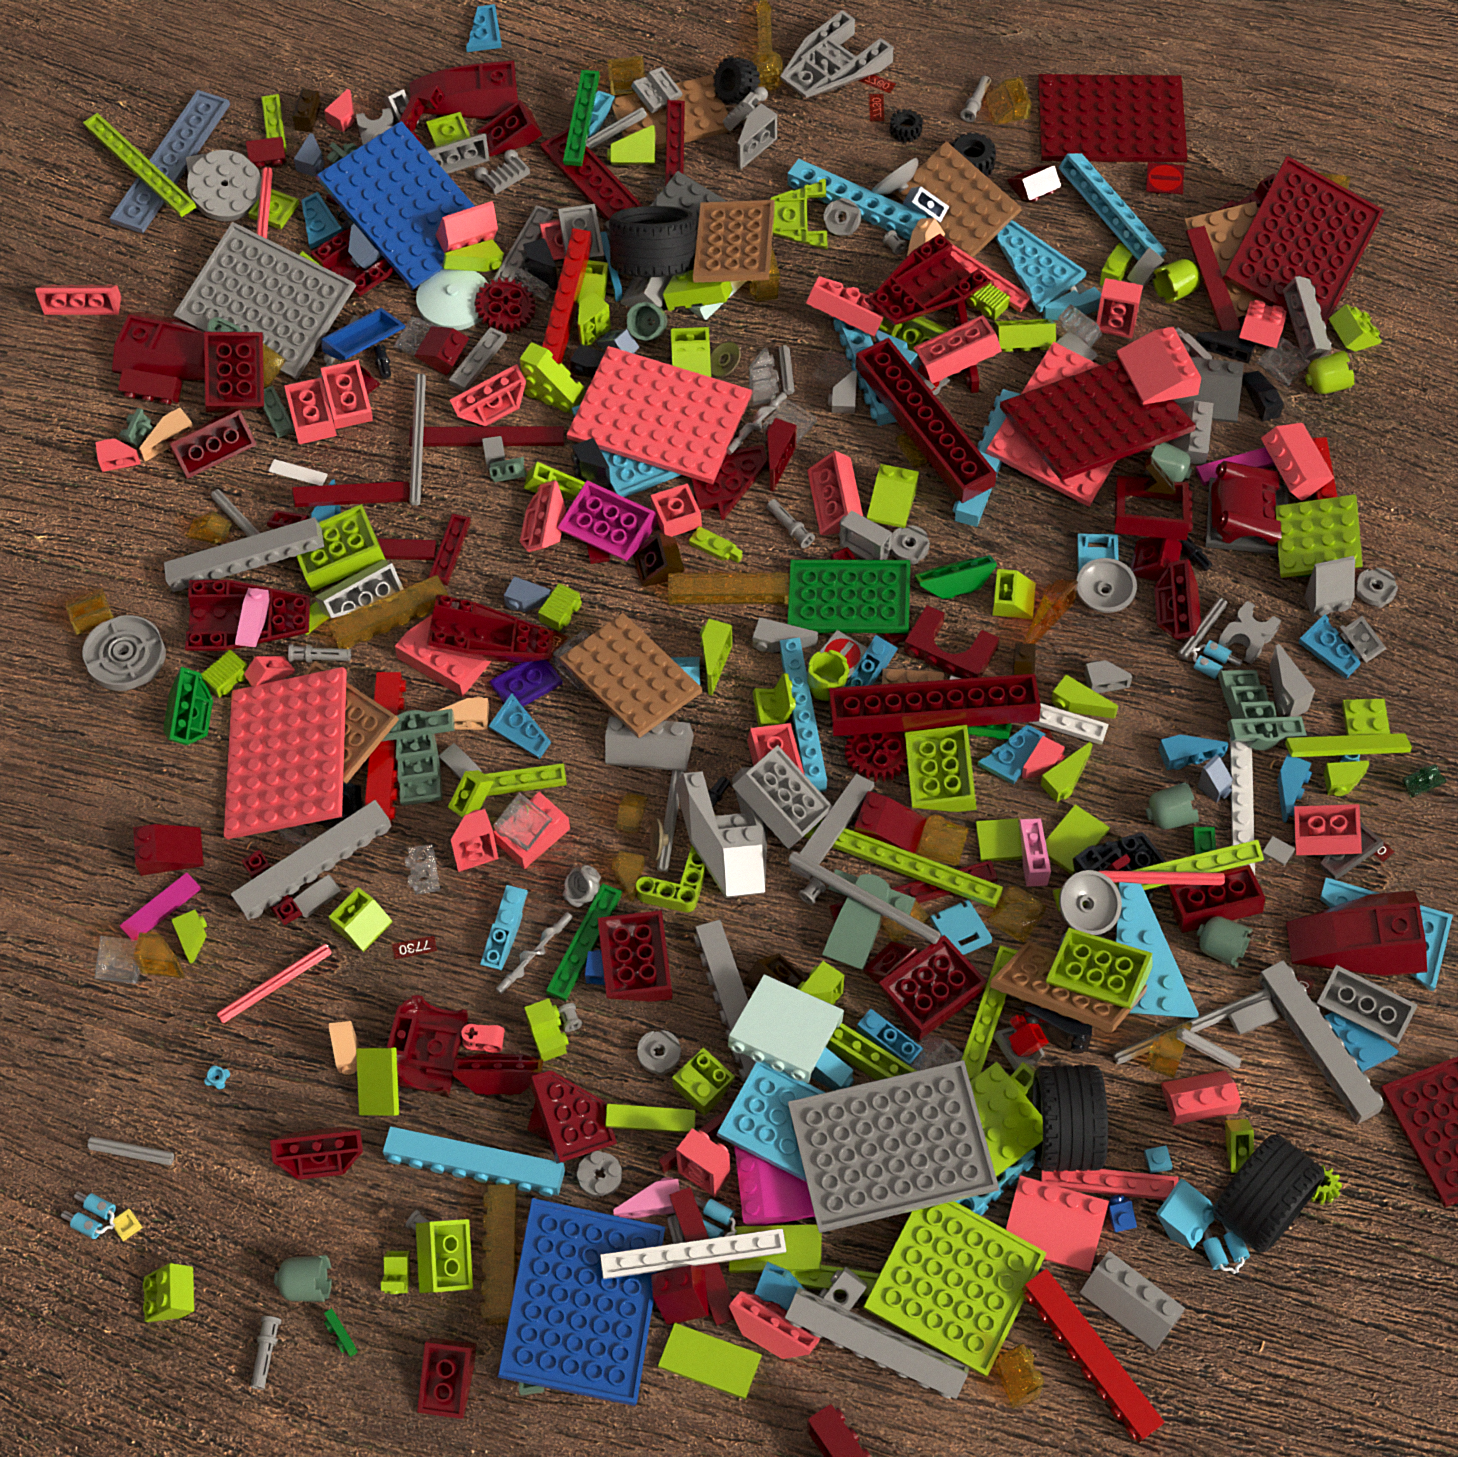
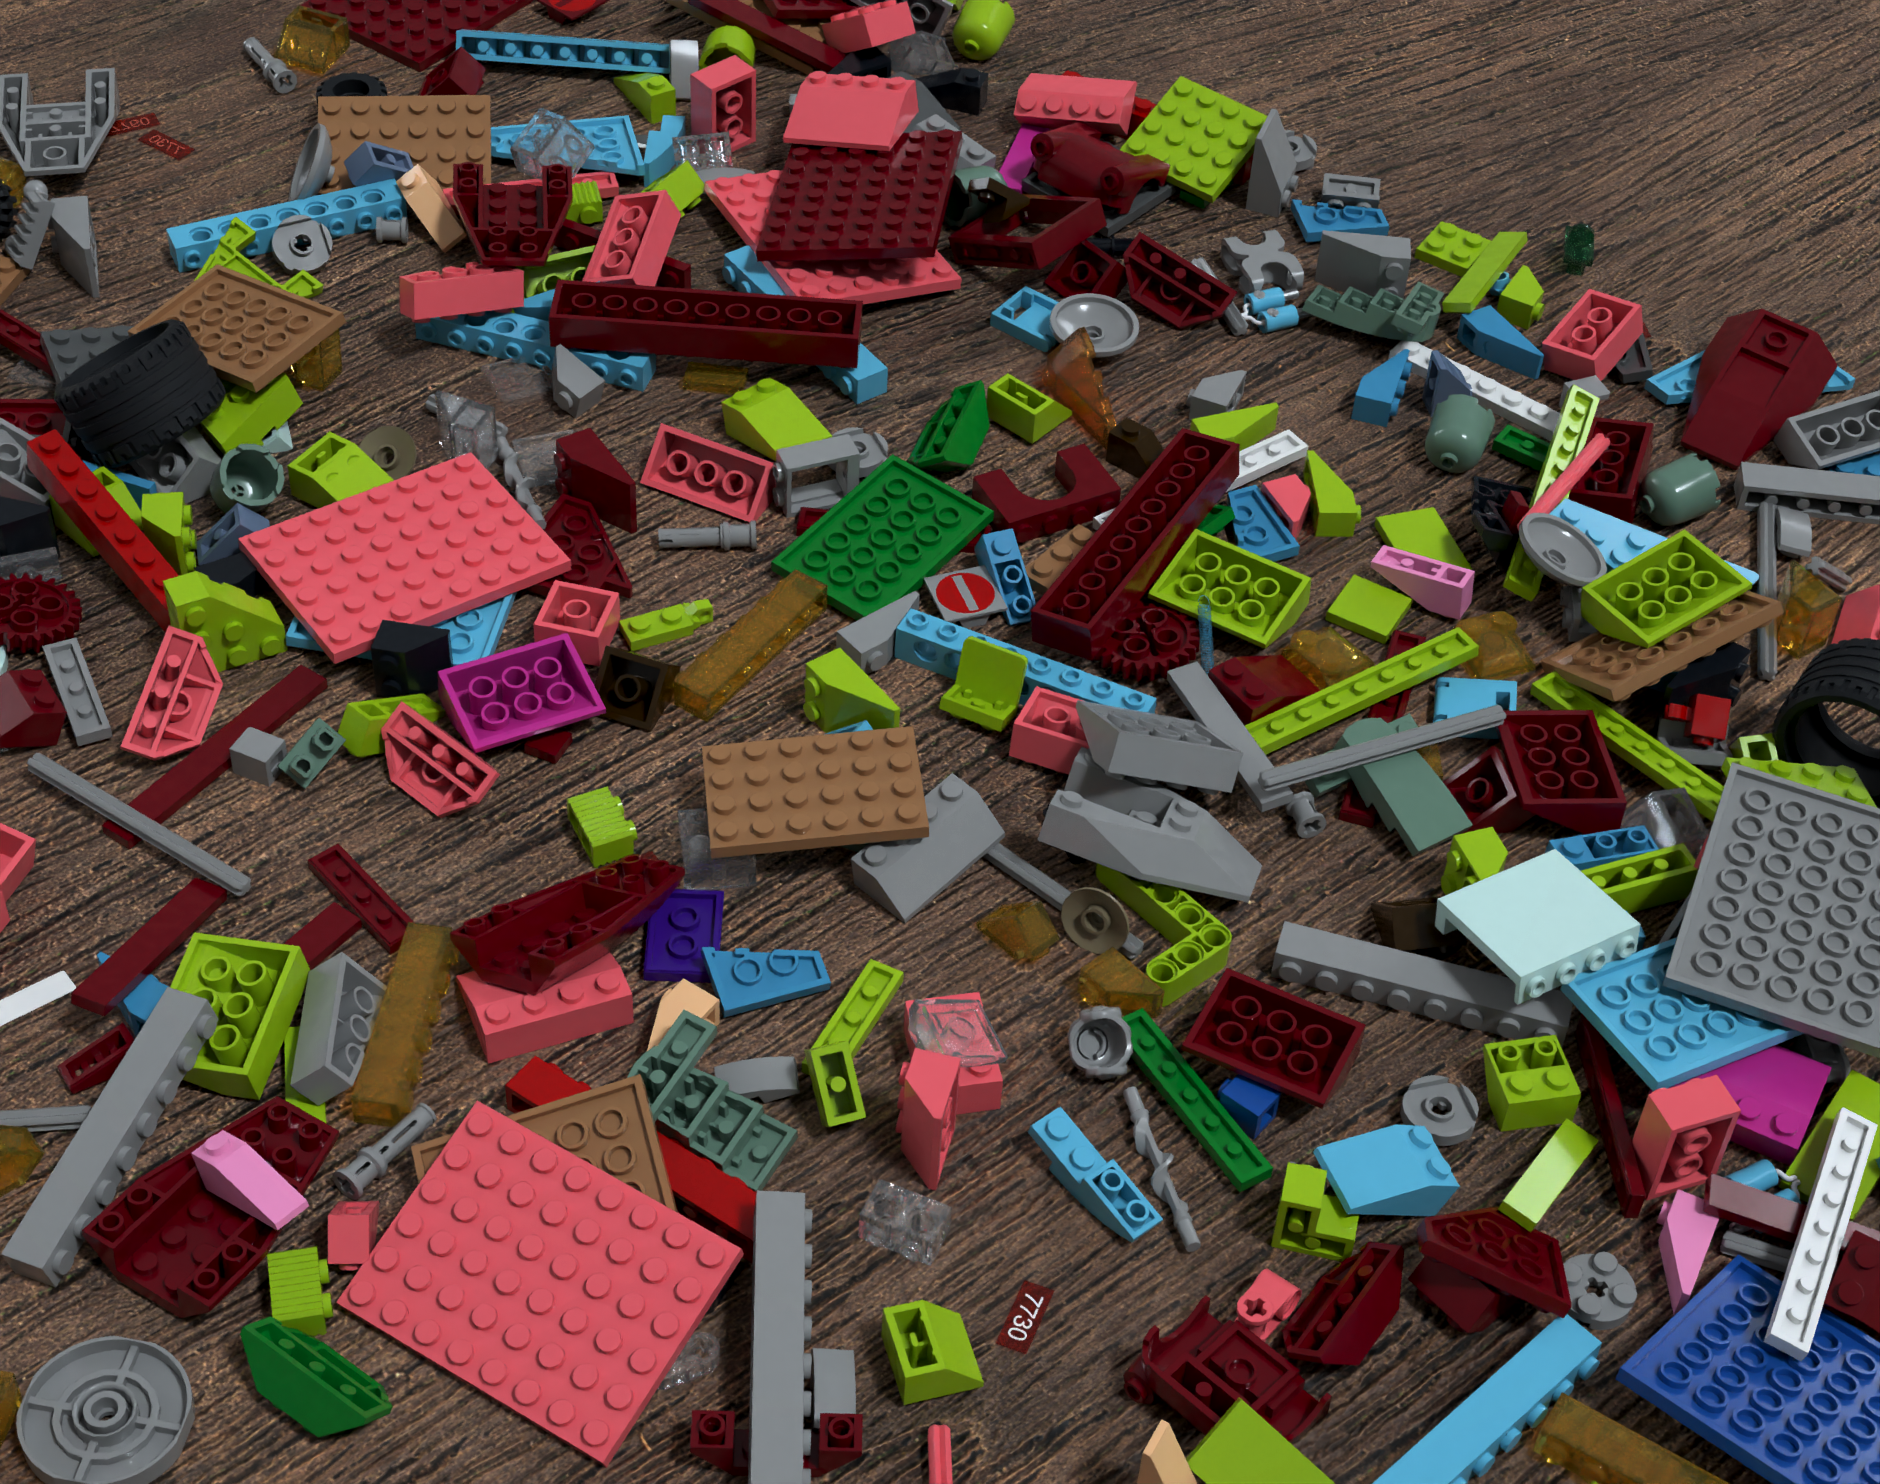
camera: 60 degrees left, 15 degrees down
(525, 595) = (541, 851): sand blue slope -> none
(590, 1045) = (1389, 1172): none -> medium azure slope
(825, 672) = (1000, 606): lime cylinder -> none
(893, 776) = (1211, 644): none -> medium azure piece
(902, 132) = (230, 133): black tyre -> none
(1007, 261) = (550, 141): none -> clear slope

